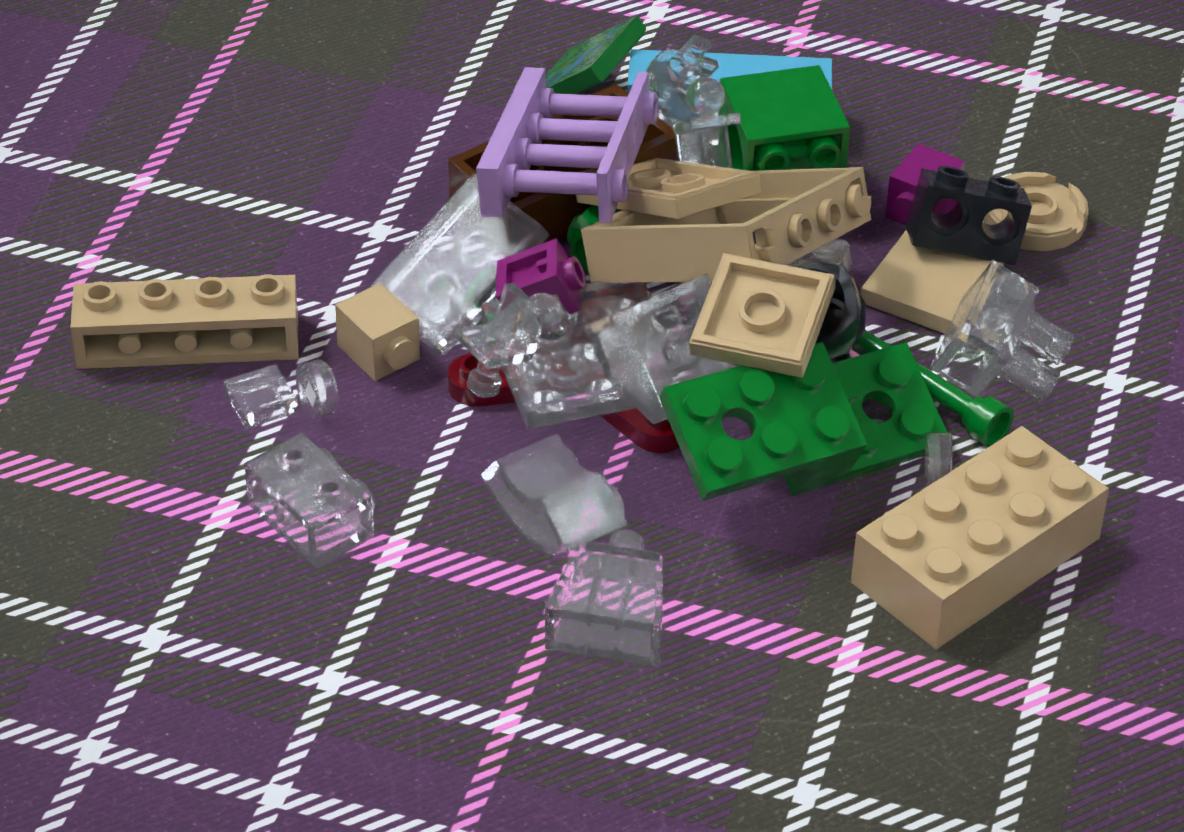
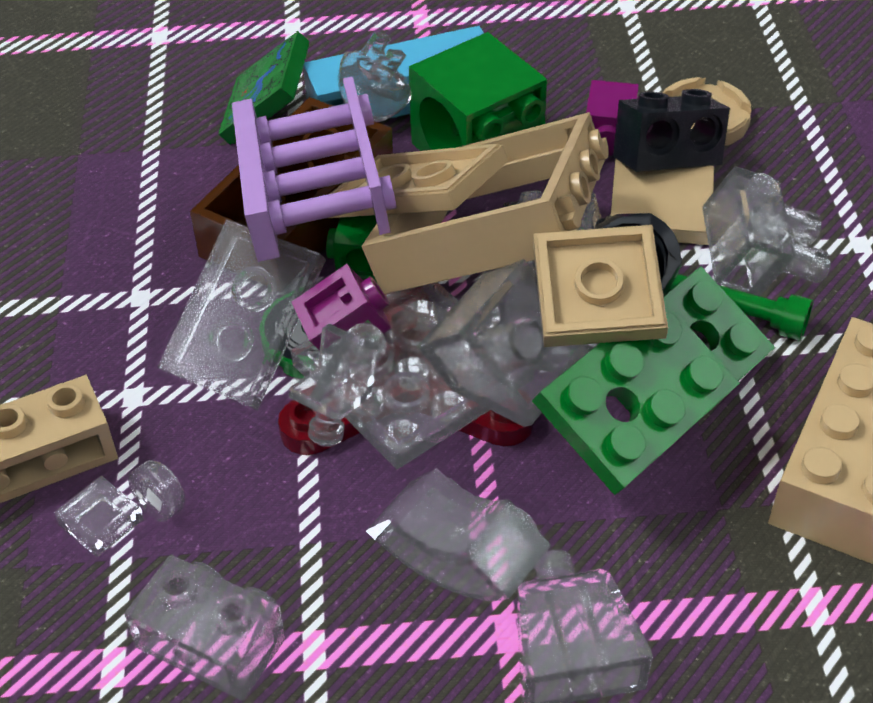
camera: 20 degrees left, 5 degrees up
(377, 331) = (191, 407): tan brick -> none
(443, 312) = (253, 370): clear plate -> none
(705, 138) = (415, 126): clear piece -> none
(937, 456) = (782, 372): clear tile -> none

